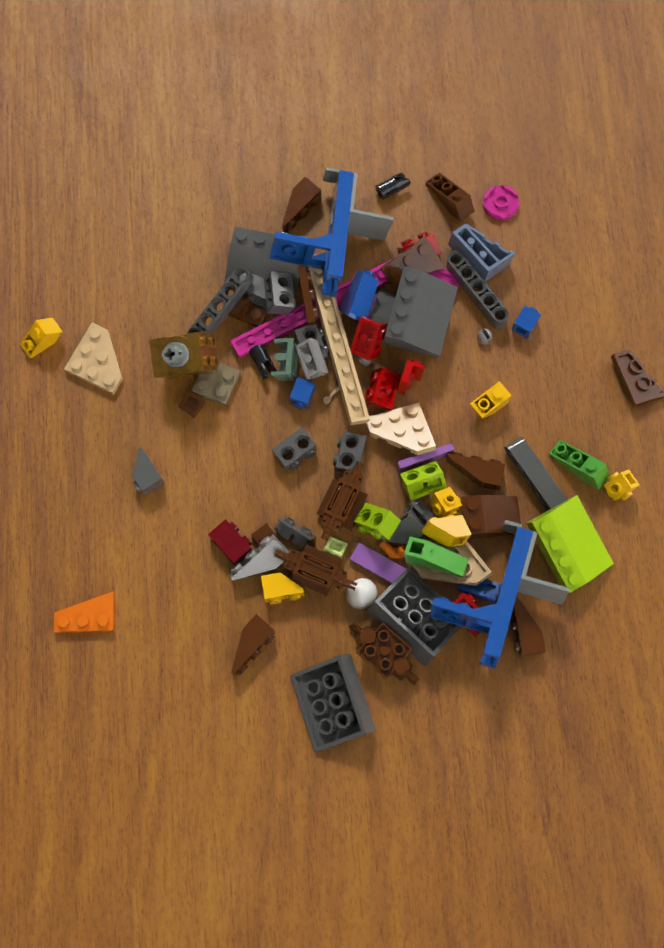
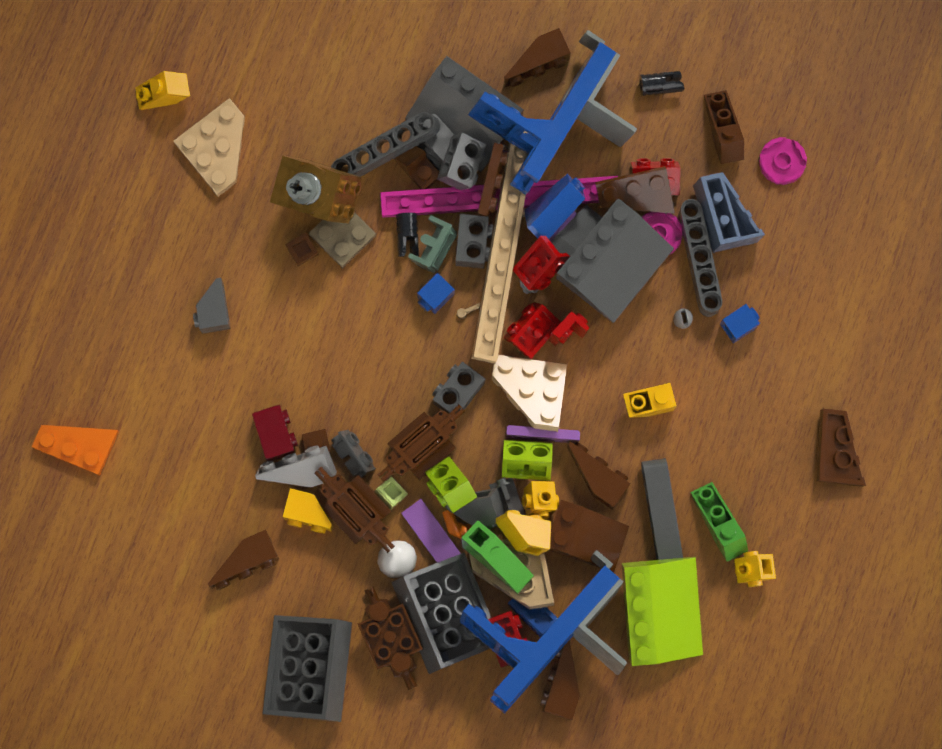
camera: 20 degrees right, 5 degrees up
(290, 446) = (394, 350): dark grey brick -> none
(311, 359) = (463, 258): light grey slope -> none

